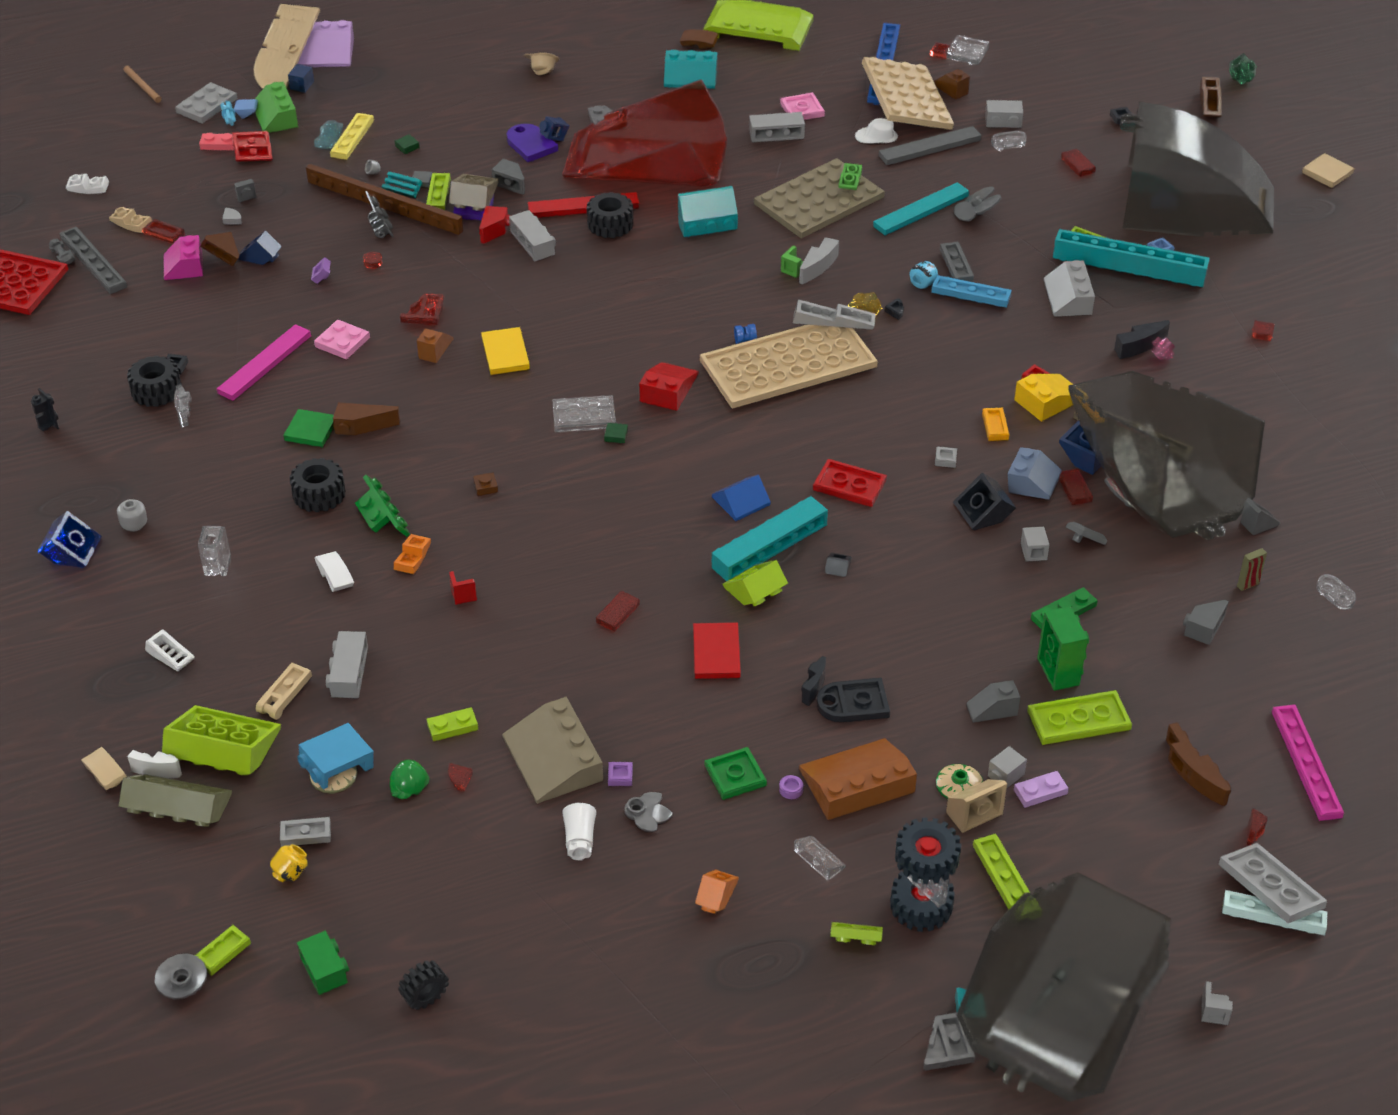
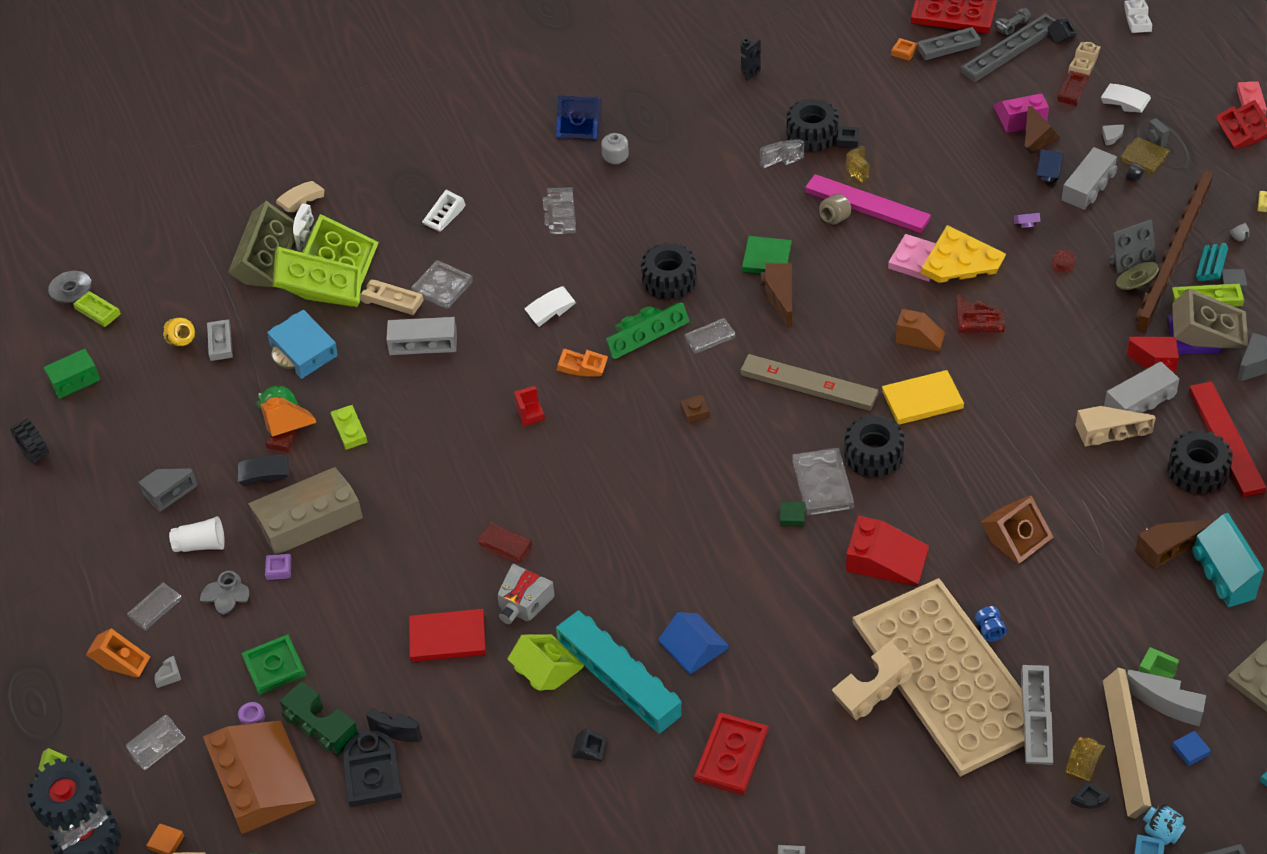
camera: 90 degrees right, 5 degrees up
(65, 322) = (904, 49): none -> orange tile
(73, 292) = (948, 43): none -> dark grey plate
(88, 226) = (1062, 30): none -> black slope
(192, 201) = (1129, 98): none -> white slope
(216, 360) = (857, 165): none -> clear yellow bracket
(253, 734) = (317, 276): none -> lime tile
(262, 204) = (1145, 154): none -> clear yellow piece
(270, 377) = (835, 209): none -> dark tan head
(278, 650) = (442, 284): none -> clear plate
(284, 211) = (1135, 171): none -> black hinge
(286, 231) = (1089, 178): none -> light grey brick
(355, 310) = (960, 257): none -> yellow plate
(399, 470) = (709, 335): none -> clear tile
(408, 220) = (1137, 276): none -> olive dish
(438, 767) = (284, 416): none -> orange slope
(471, 414) = (809, 382): none -> dark tan tile
(499, 785) = (267, 467): none -> black slope
(508, 865) = (167, 486): none -> dark grey slope
(559, 375) = (878, 432): none -> black tyre
(562, 255) = (1109, 424): none -> tan slope
(655, 870) = (154, 606): none -> clear tile
(656, 312) = (1017, 529): none -> dark orange slope
(682, 243) = (1169, 540): none -> reddish brown slope
(682, 595) = (523, 594): none -> light grey torso
(736, 854) = (167, 673): none -> light grey tile
(790, 379) = (860, 696): none -> tan arch
(793, 744) = (331, 732): none -> dark green arch
(855, 282) = (1126, 743): none -> tan tile
(859, 258) = (1191, 748): none -> blue tile

